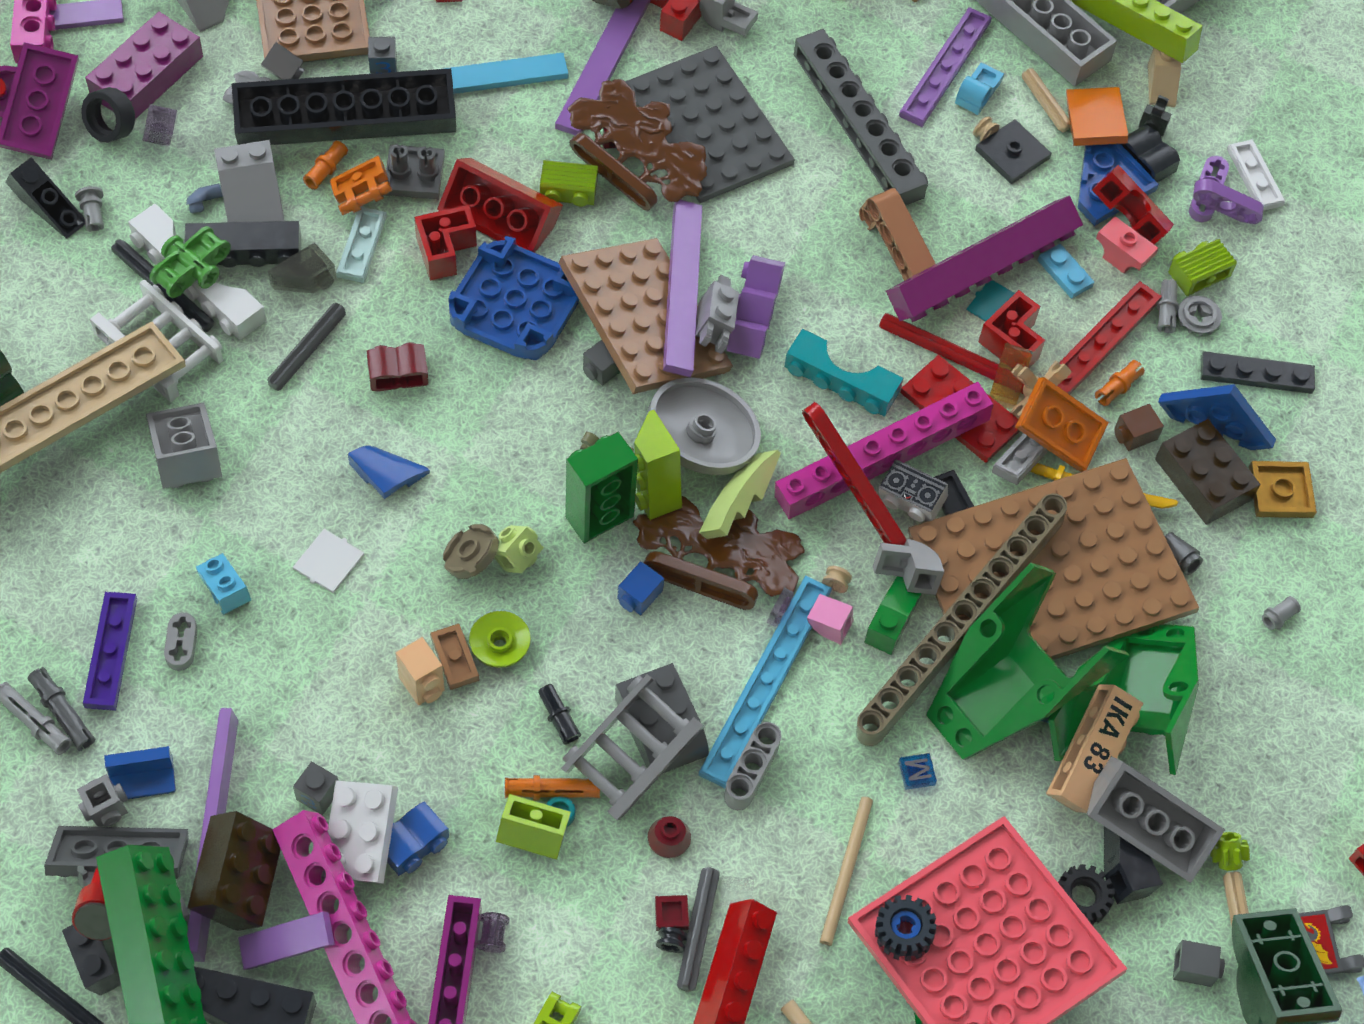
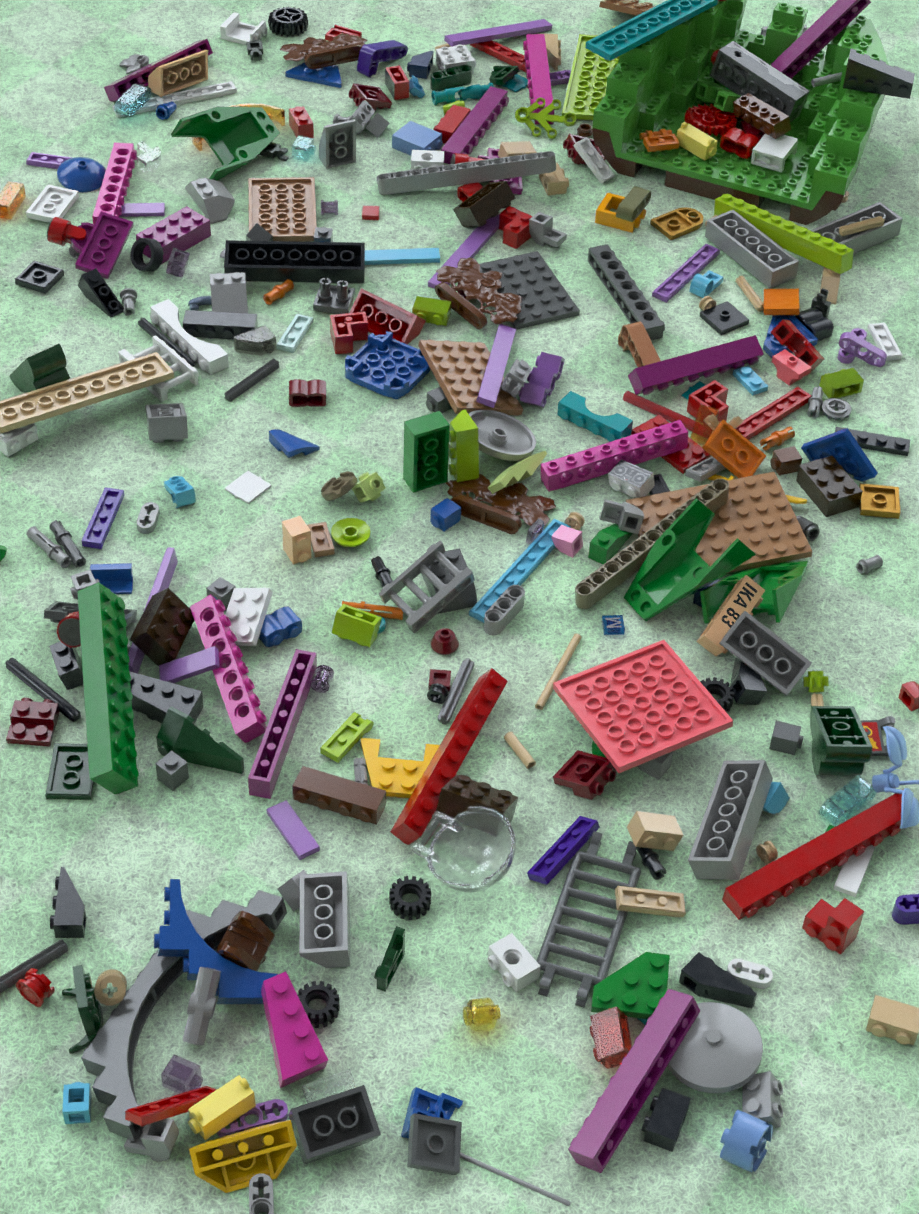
camera: 10 degrees right, 15 degrees down
(190, 262) = (185, 326): bright green axle -> none
(357, 180) = (299, 301): orange plate -> none
(853, 475) = (589, 457): red beam -> none
(921, 933) = (598, 691): black bush -> none

